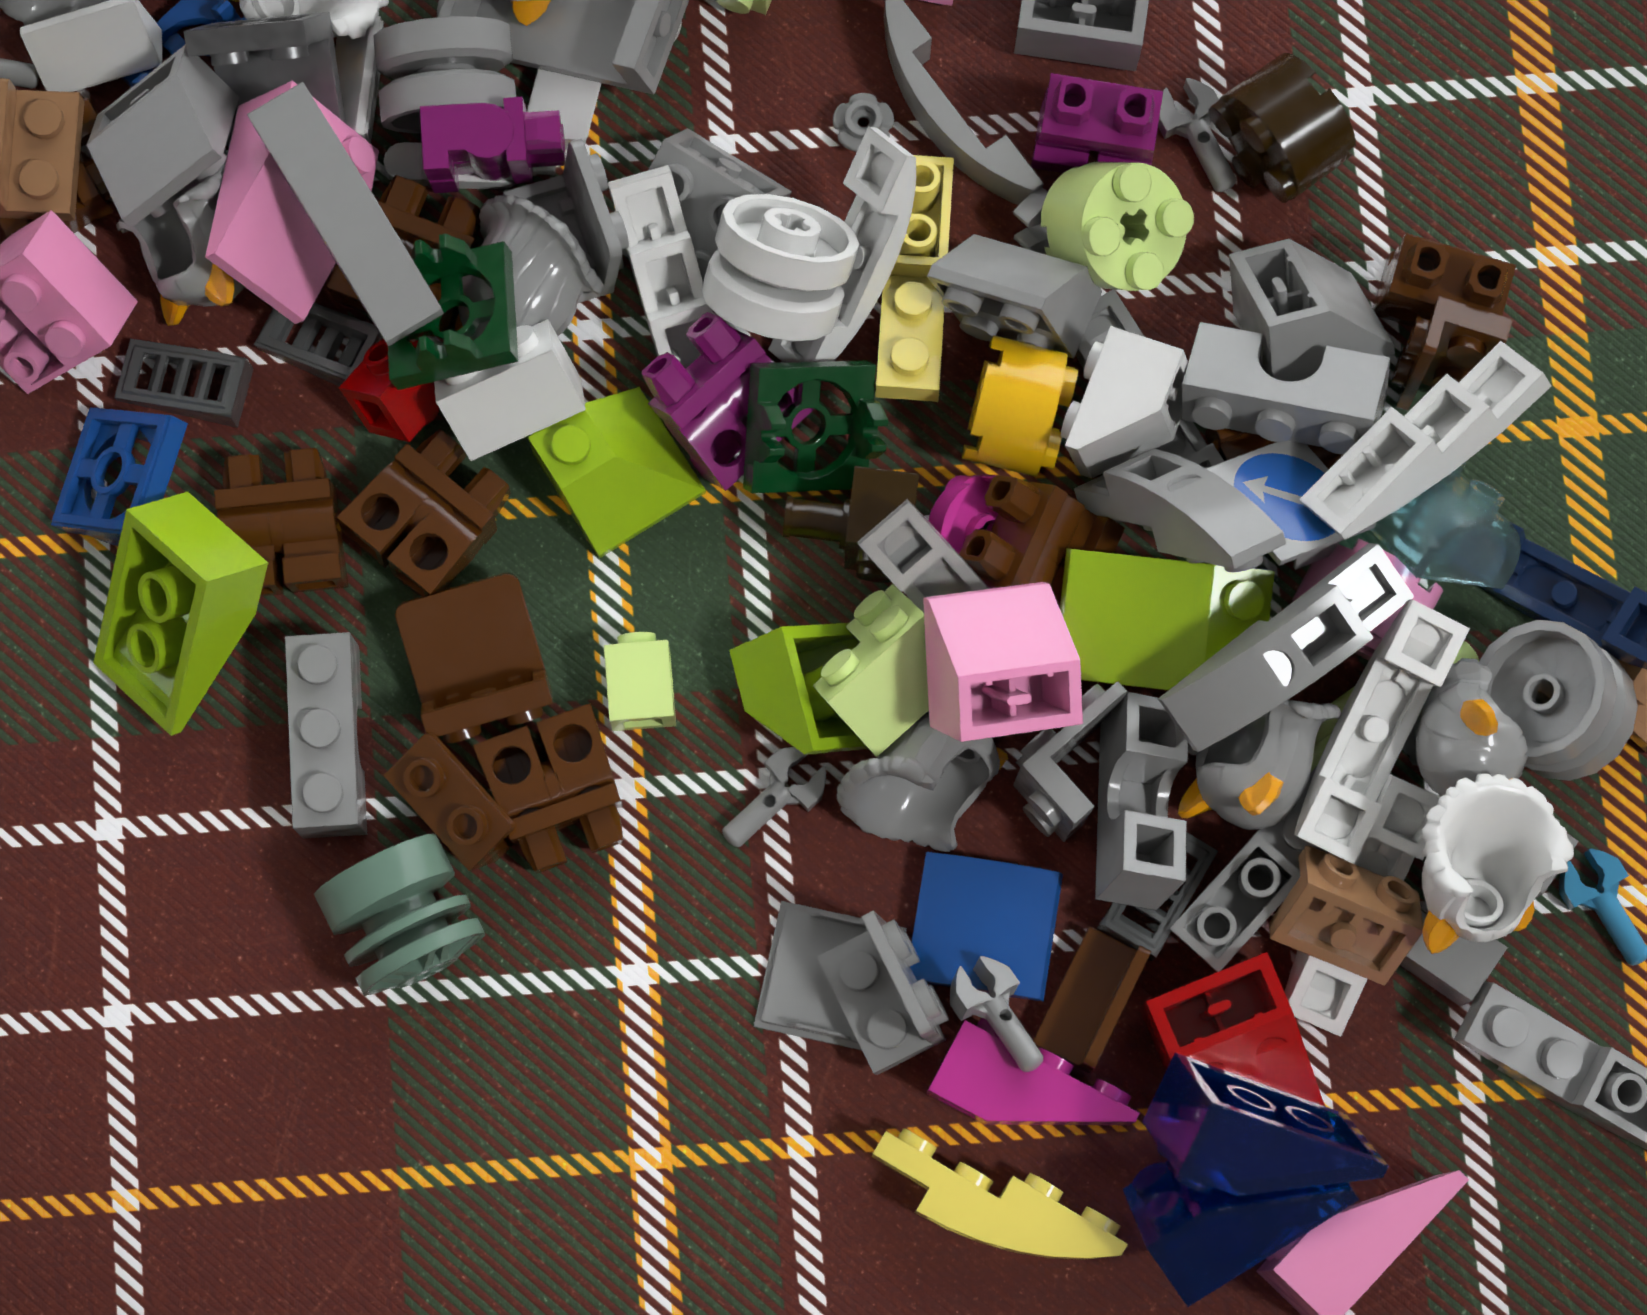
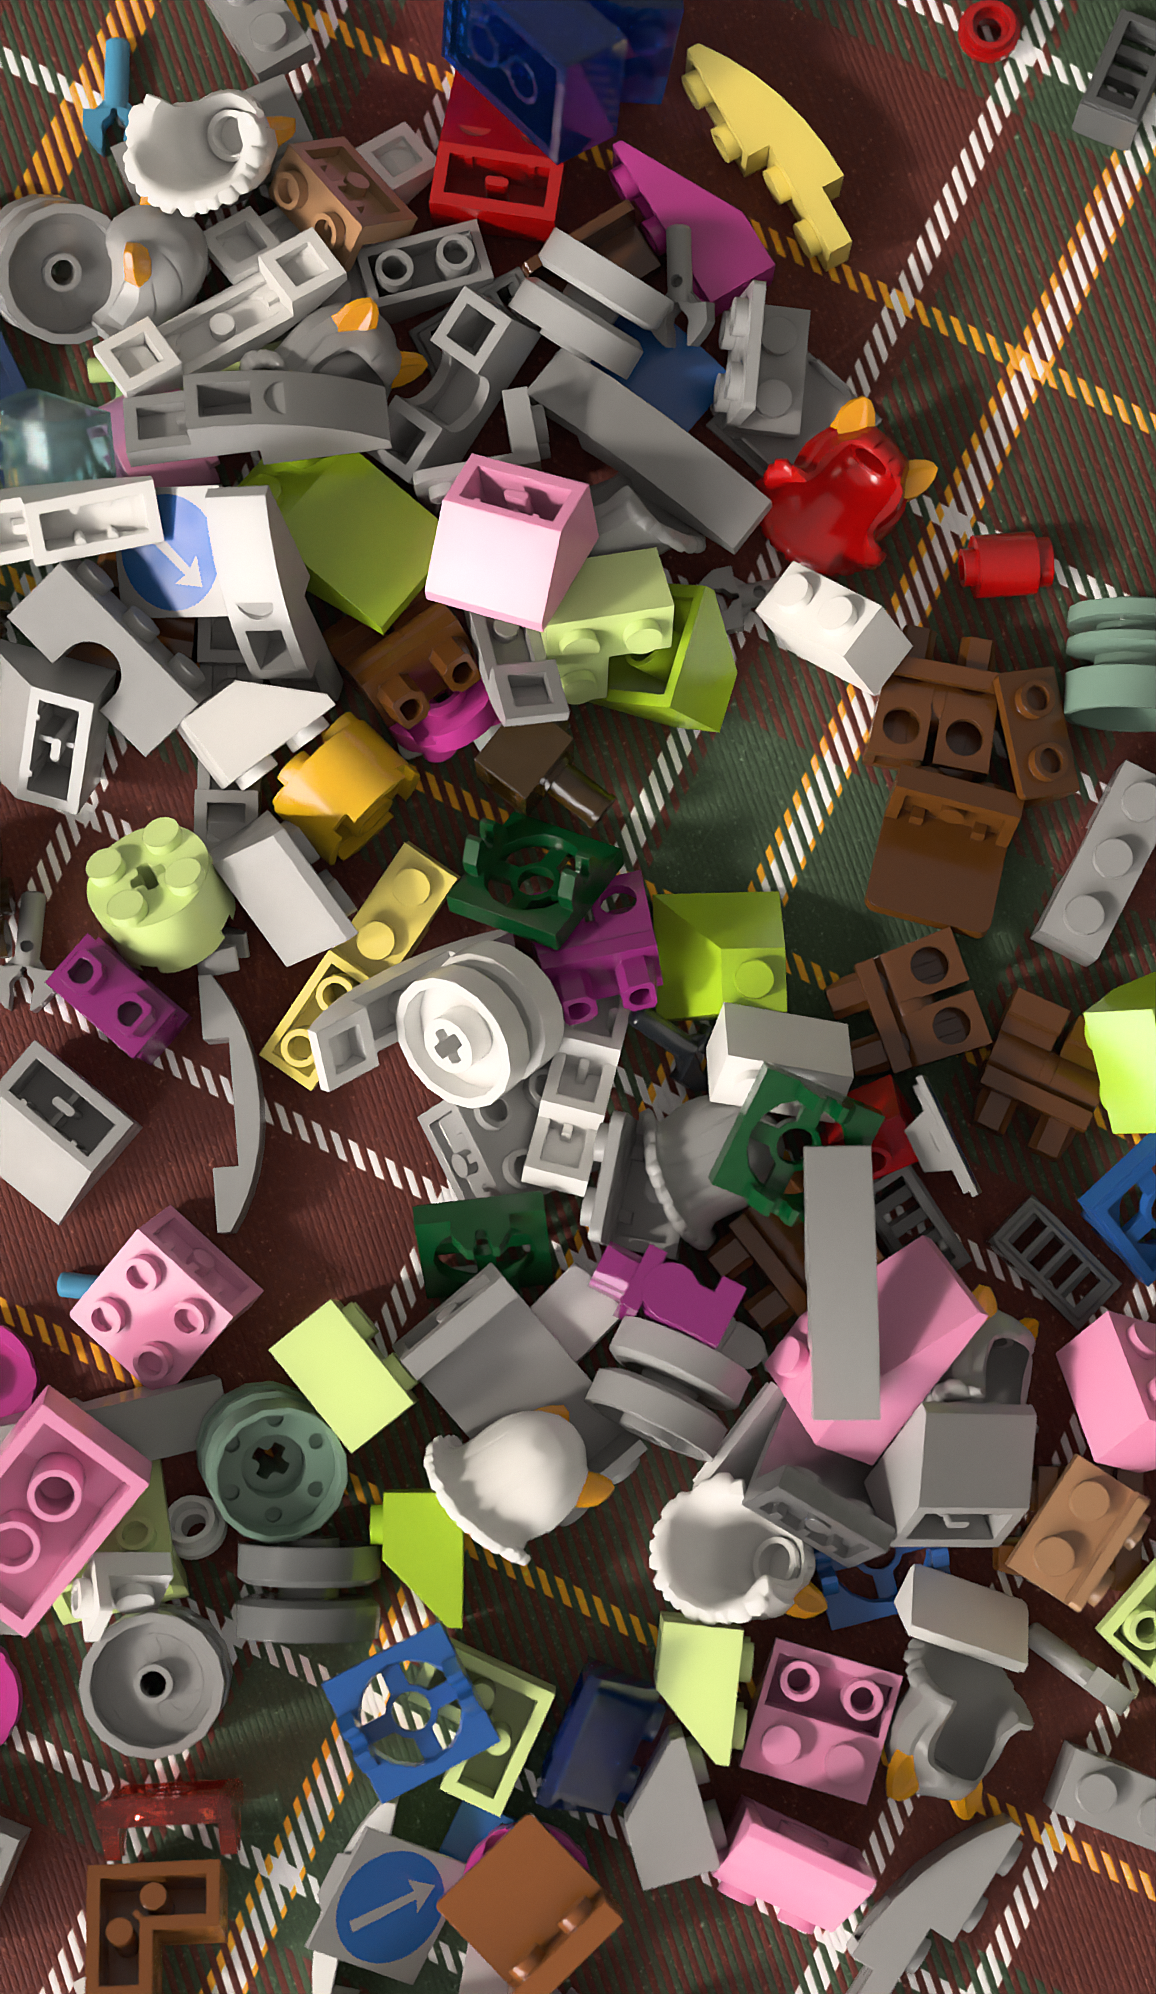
camera: 150 degrees left, 5 degrees up
(329, 406) = (935, 1140): none -> light grey piece
(565, 952) = (1006, 564): none -> red brick
(604, 370) = (677, 1043): none -> black bar
(639, 682) = (810, 753): yellowish green brick -> none
(669, 109) = (501, 1220): none -> dark green piece
(681, 790) = (834, 628): none -> white brick
(745, 922) = (841, 494): none -> red hair
(861, 106) = (331, 1149): light grey plate -> none
(938, 851) = (650, 450): none -> light grey slope
(1066, 936) = (586, 310): none -> light grey wheel

